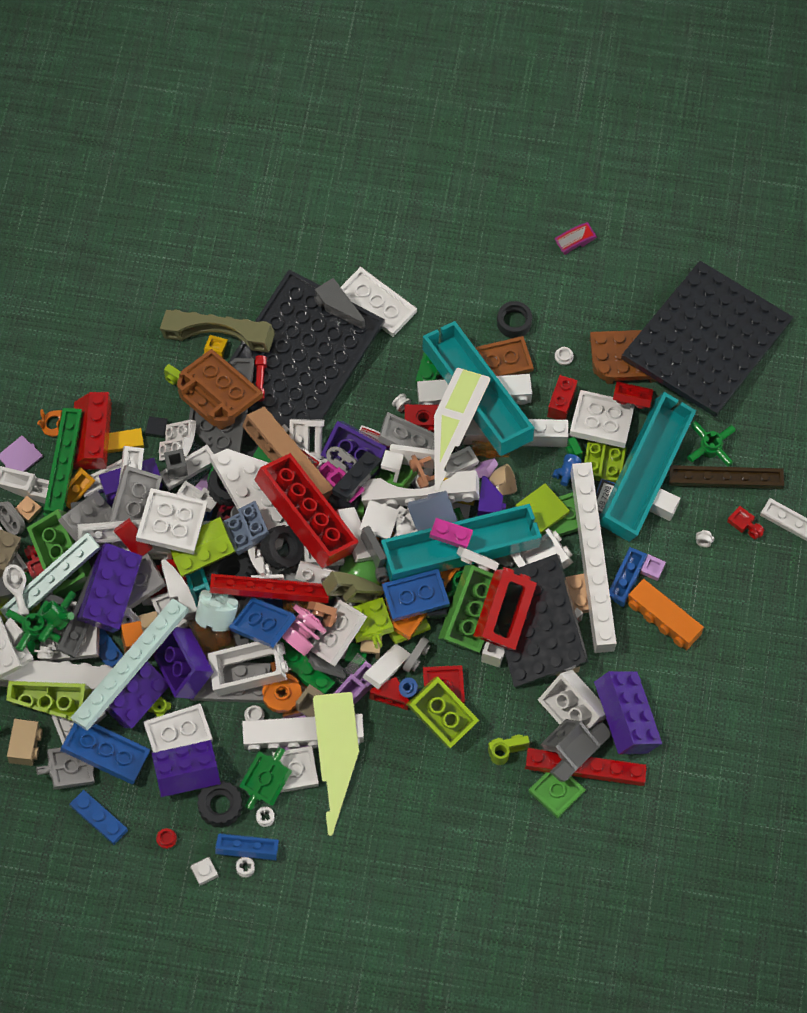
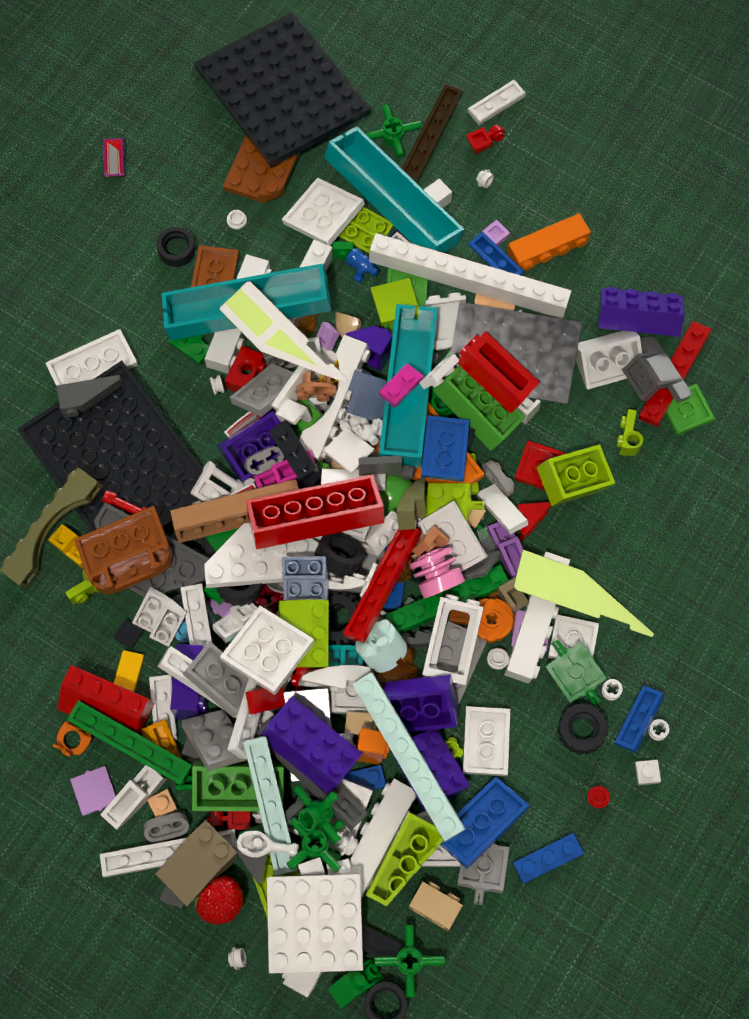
camera: 65 degrees left, 5 degrees up
(175, 464) = (194, 624): dark grey brick -> none
(186, 768) = (536, 746): dark purple brick -> none
(262, 622) = (419, 603): blue plate -> none
(408, 687) = (539, 495): blue cone -> none
(562, 398) = (284, 238): red brick -> none
(632, 394) = (311, 174): red plate -> none

